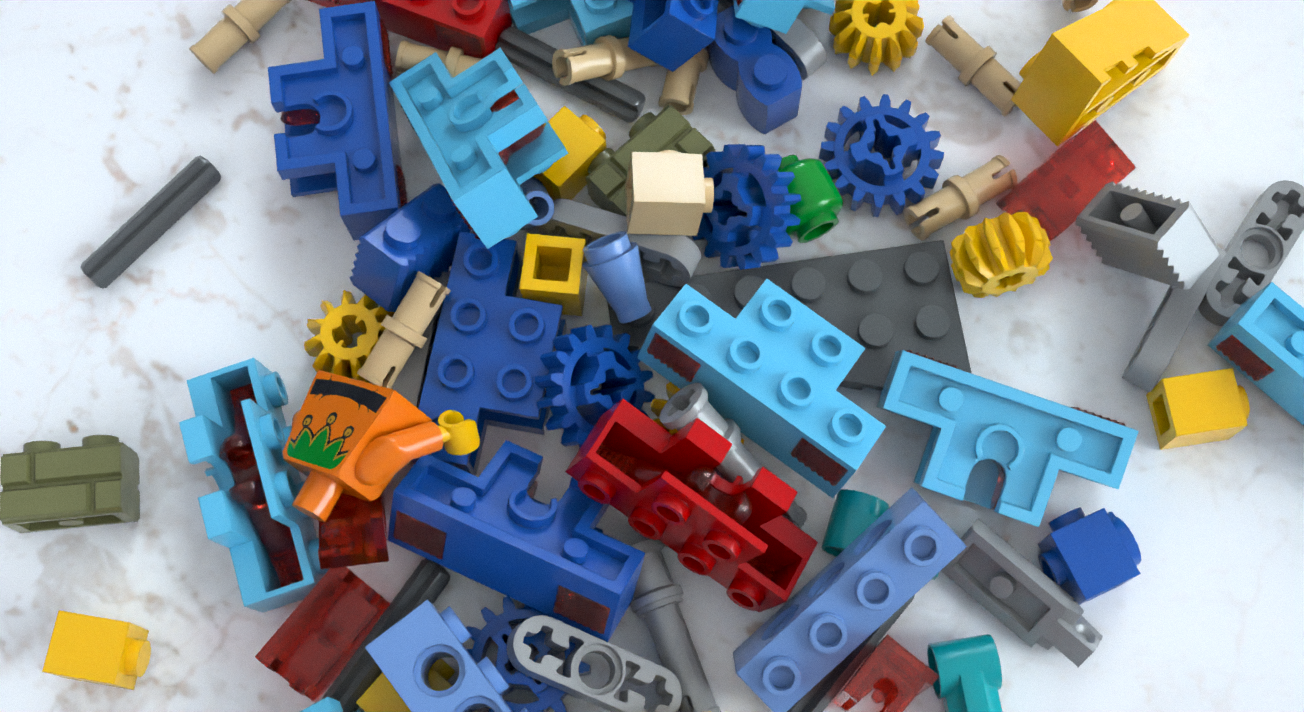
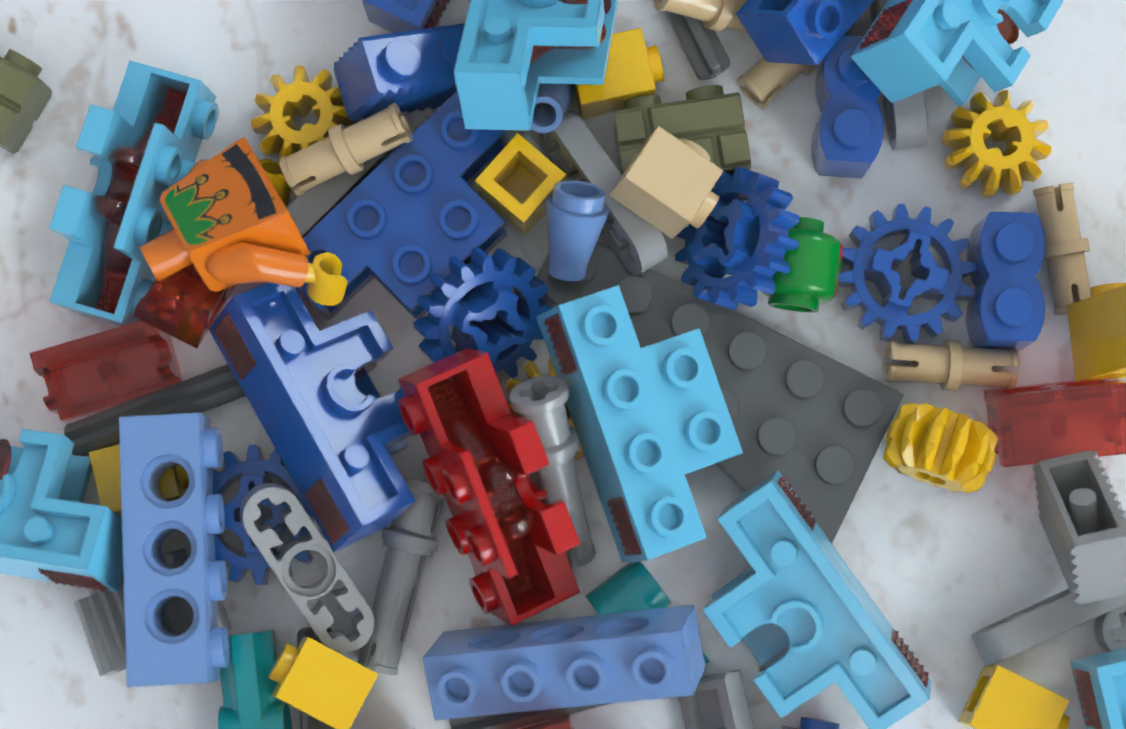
camera: 35 degrees right, 10 degrees up
(968, 119) = (1007, 295): none -> blue brick

